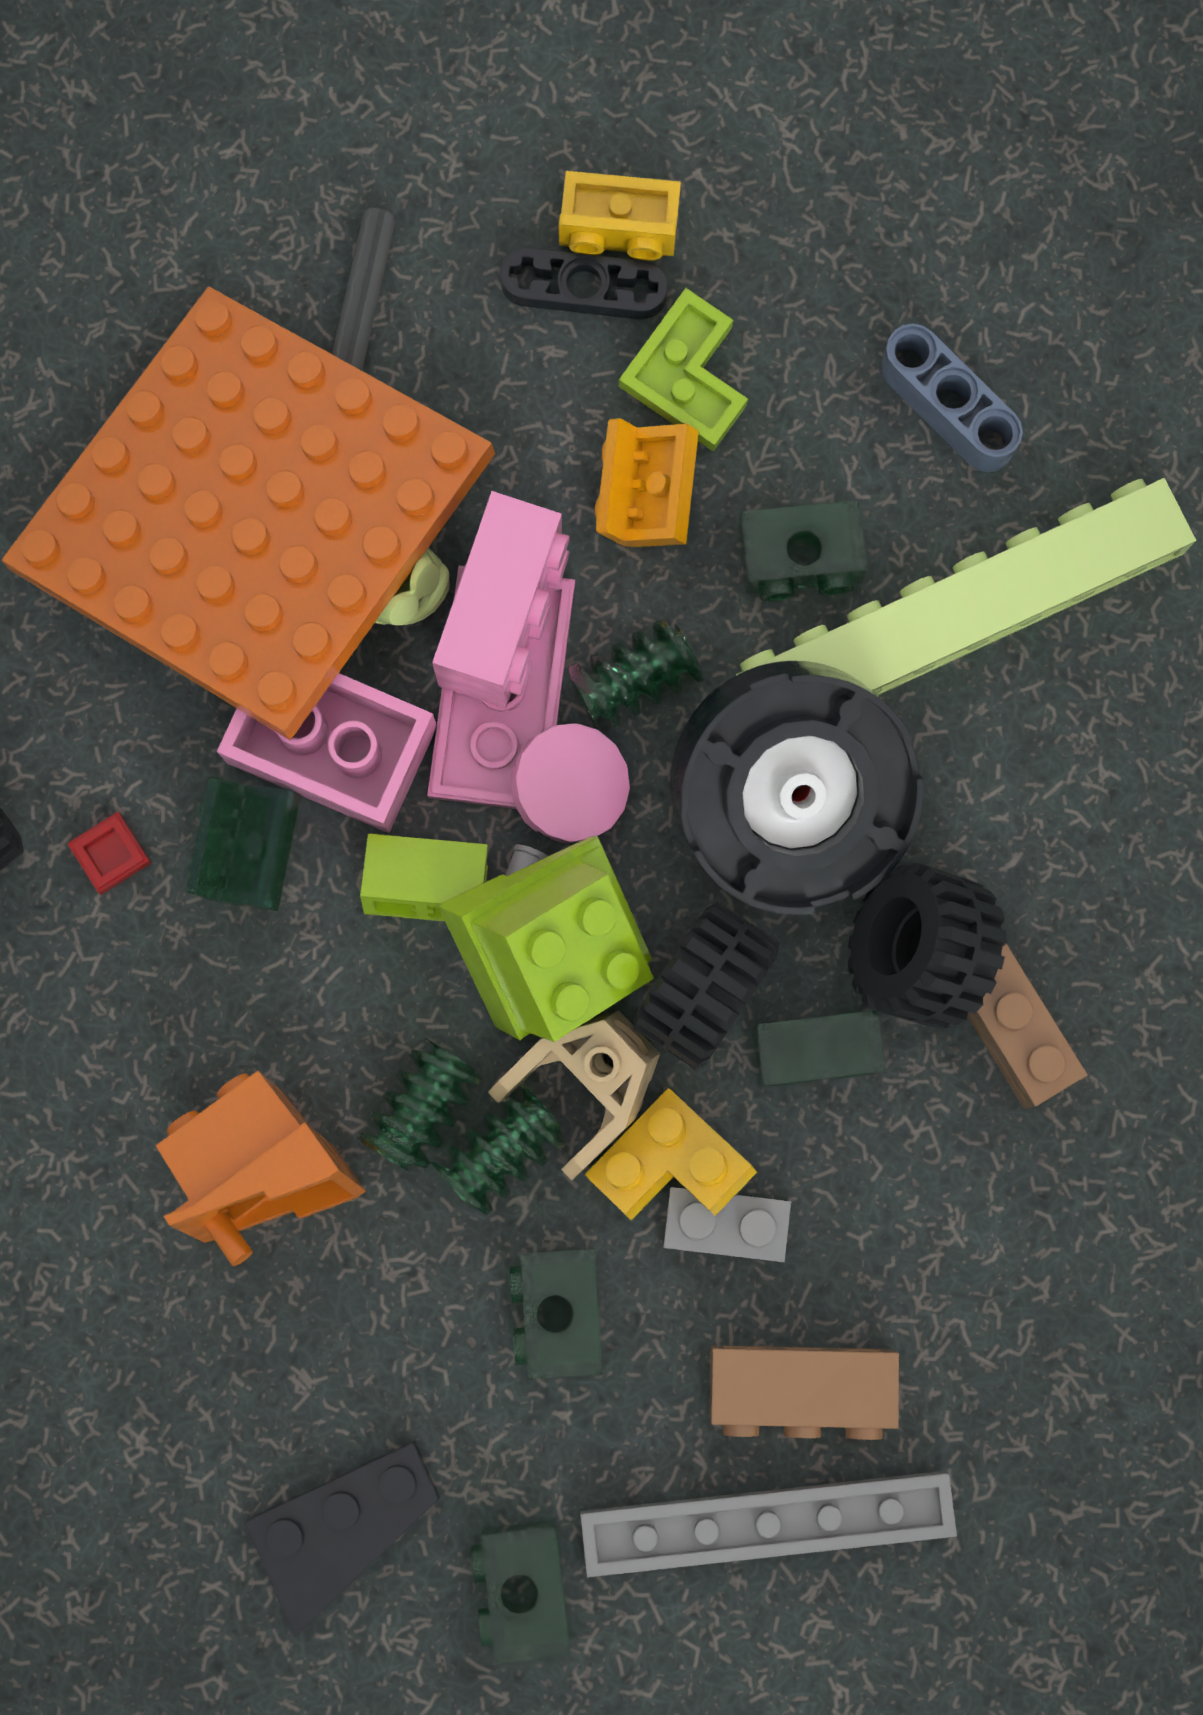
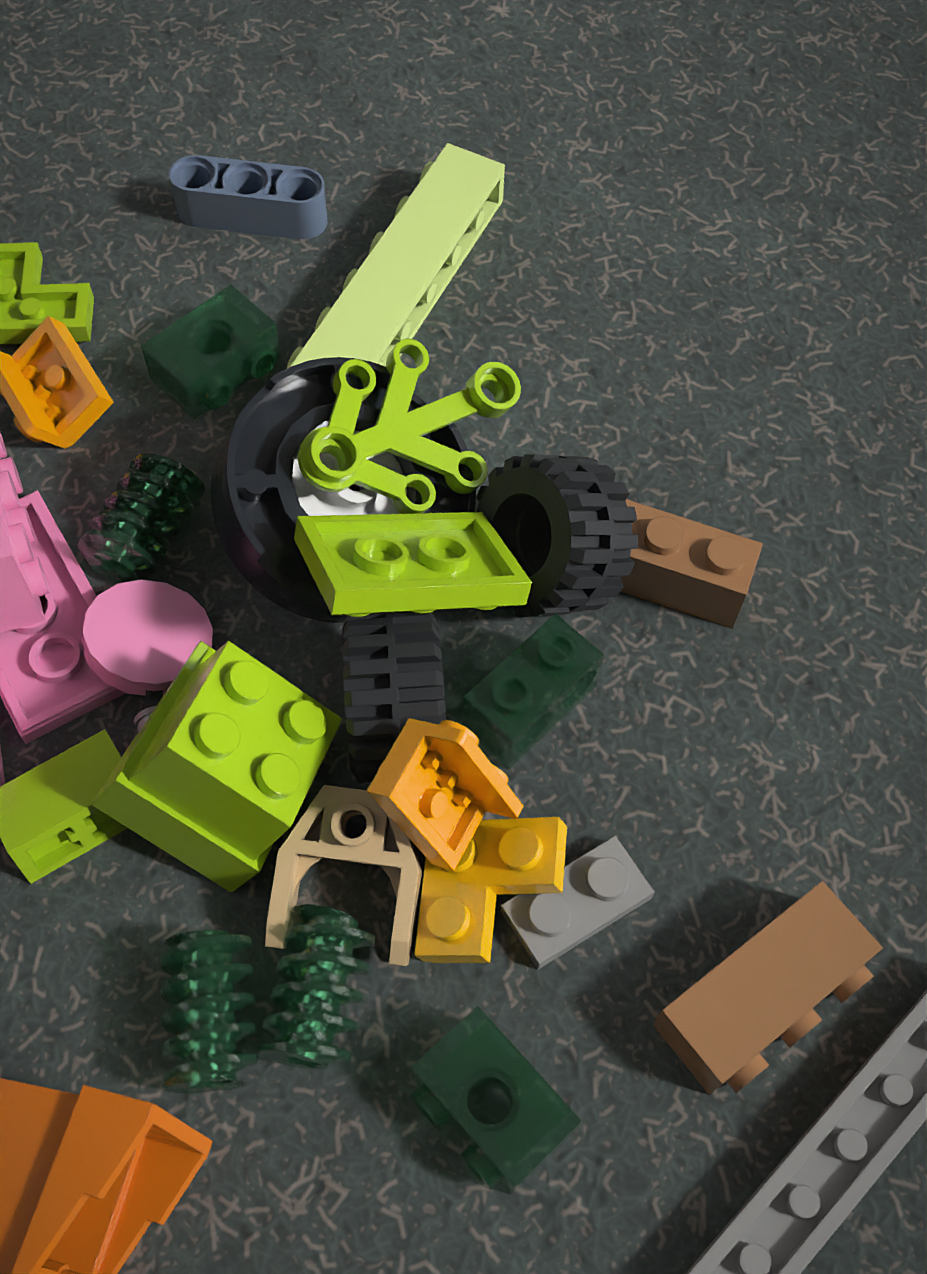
camera: 40 degrees left, 20 degrees down
(676, 1090) = (440, 787): none -> light orange bracket
(787, 904) = (410, 562): none -> lime plate
(867, 783) = (402, 431): none -> lime plant

